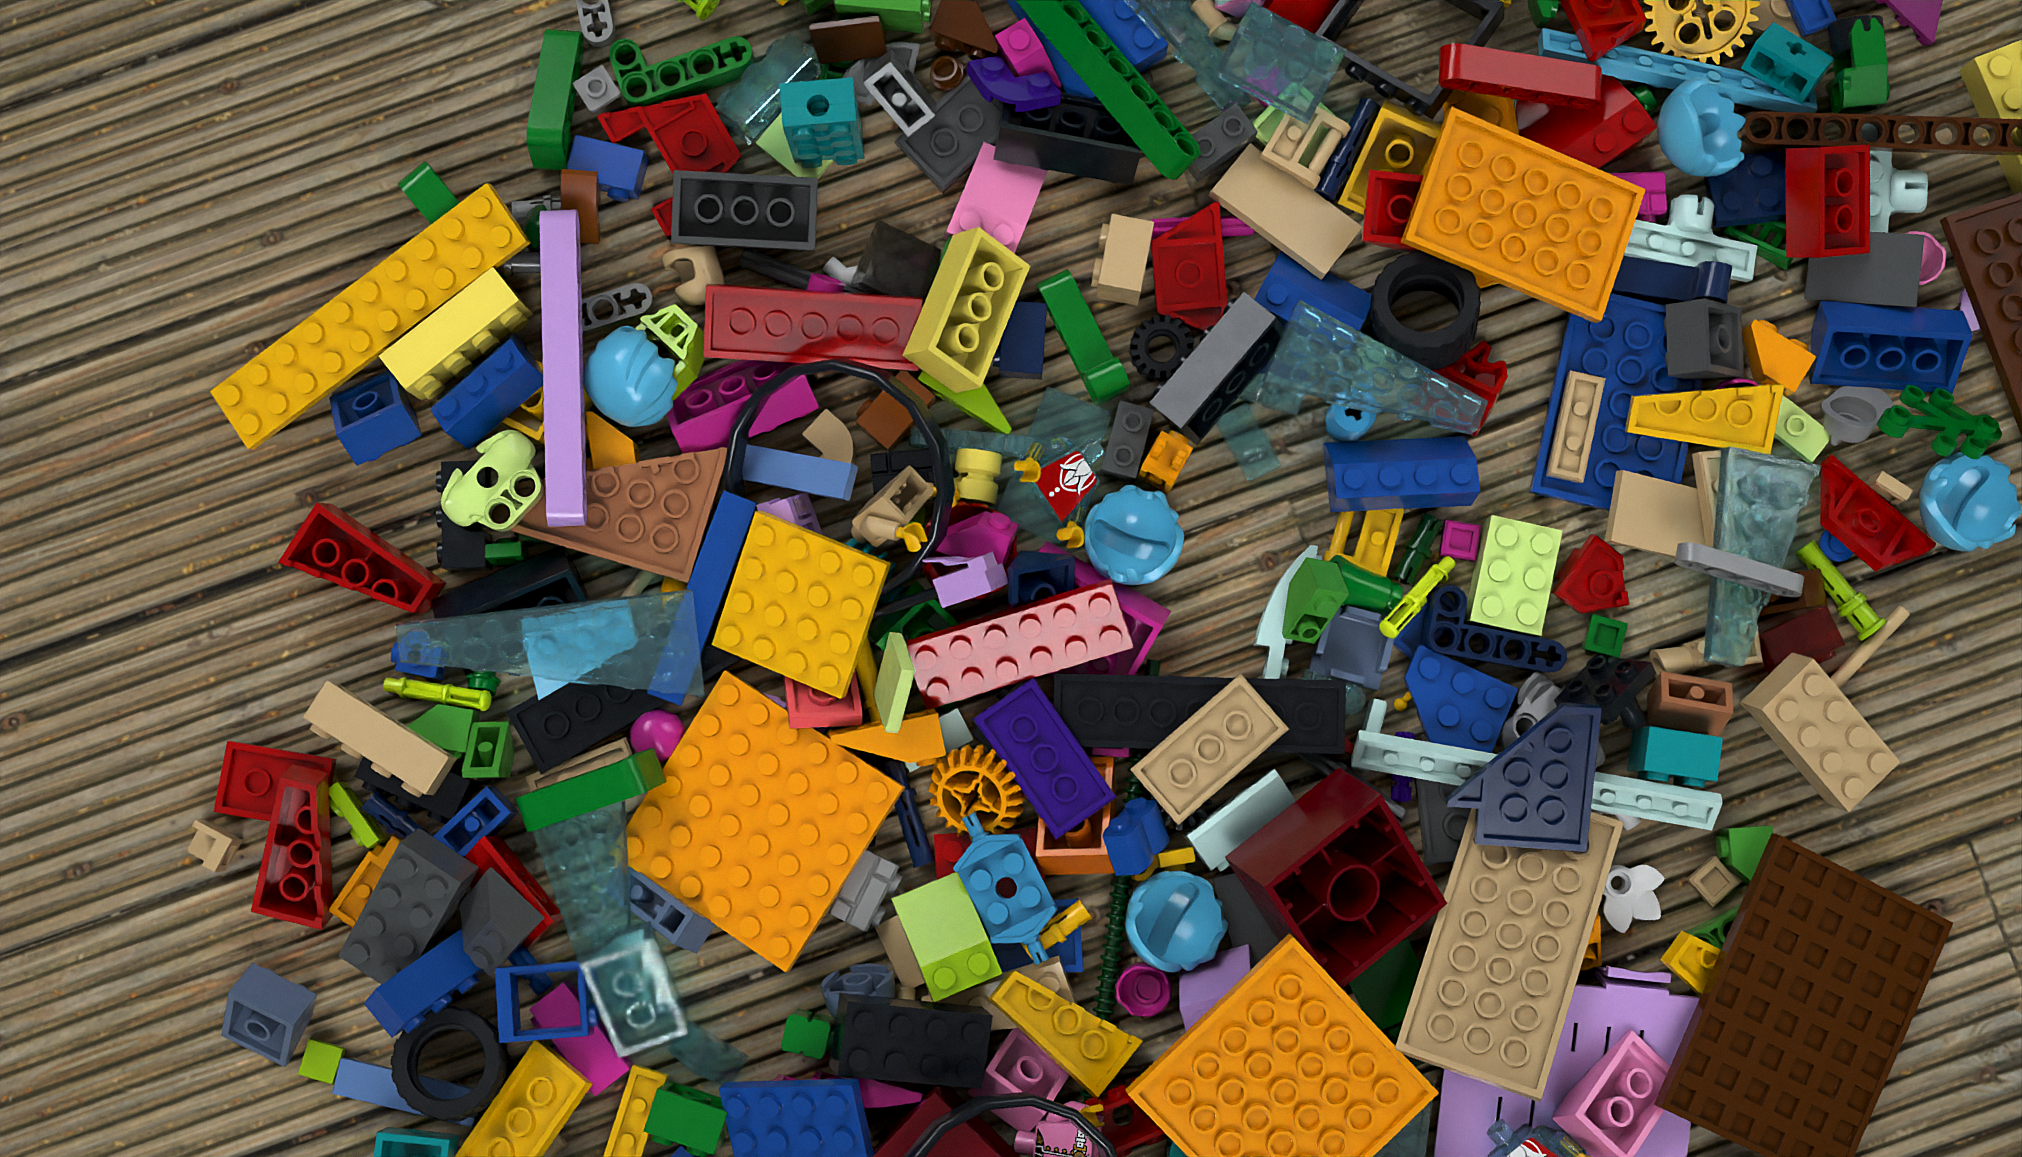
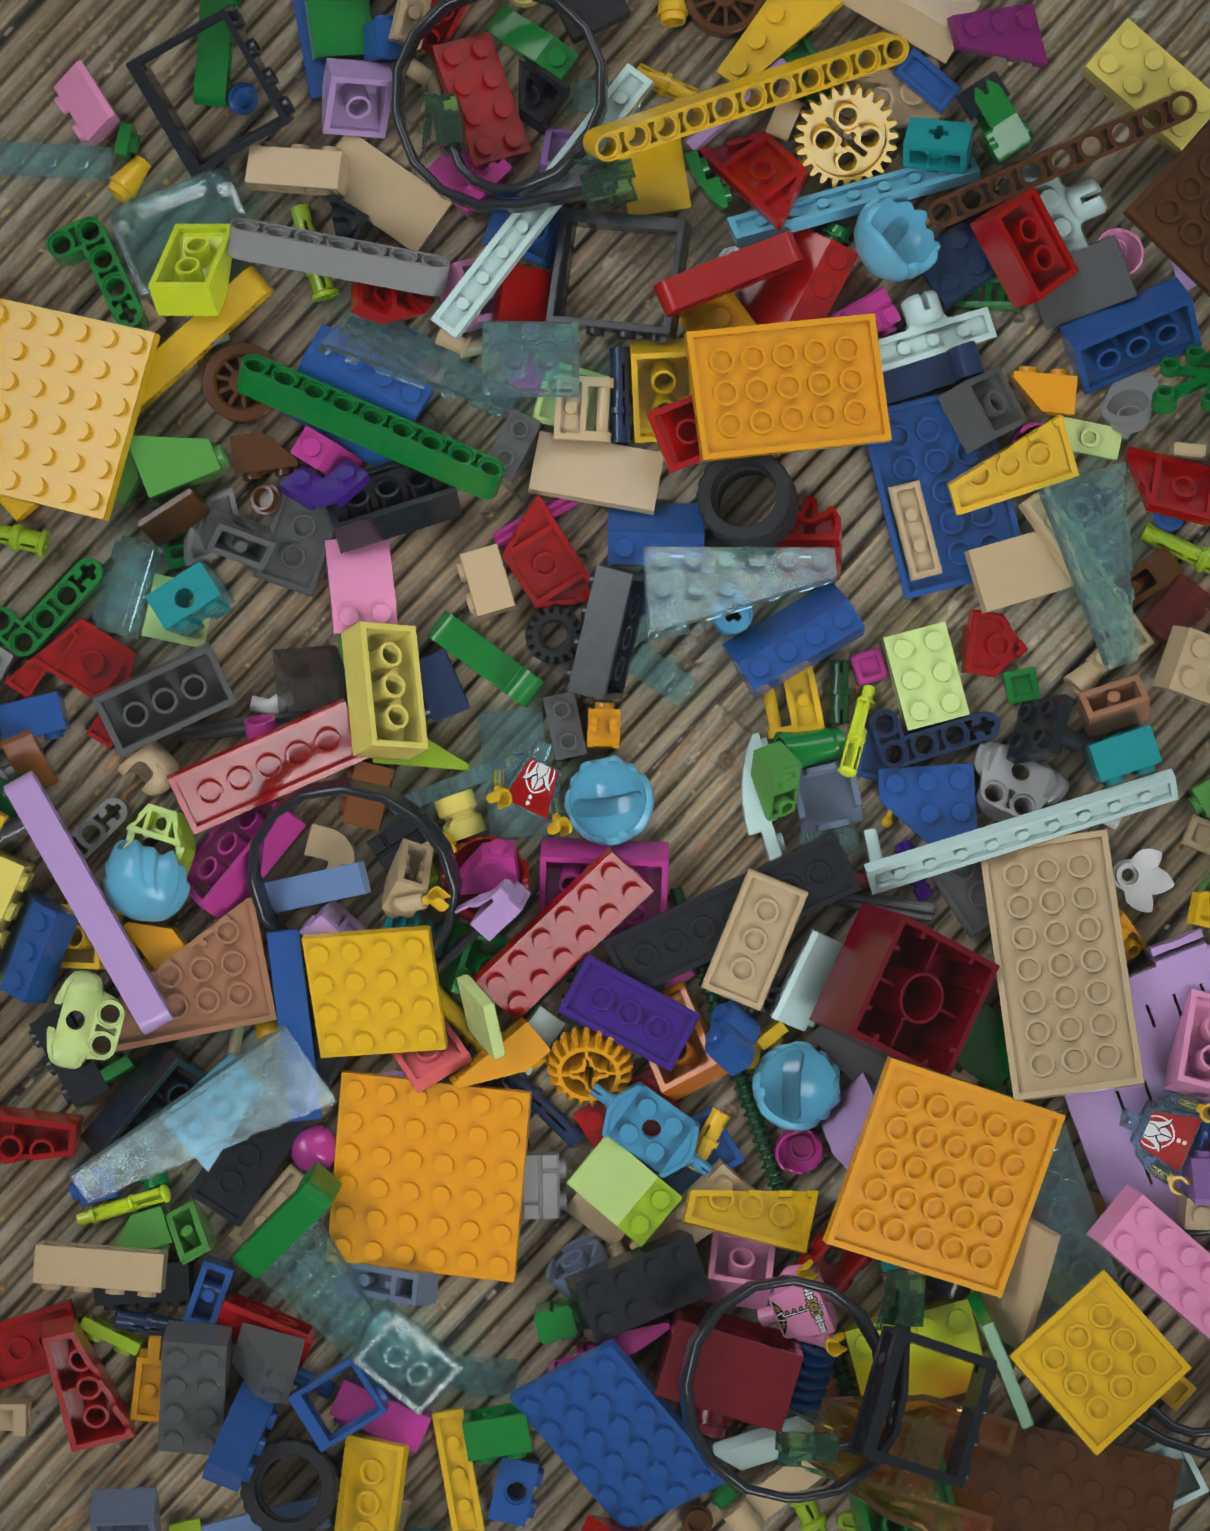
camera: 30 degrees left, 5 degrees up
(1039, 576) = (551, 873): dark blue slope -> none
(1539, 785) = (1024, 837): dark blue wing -> none
(1739, 569) = (1097, 586): light grey beam -> none

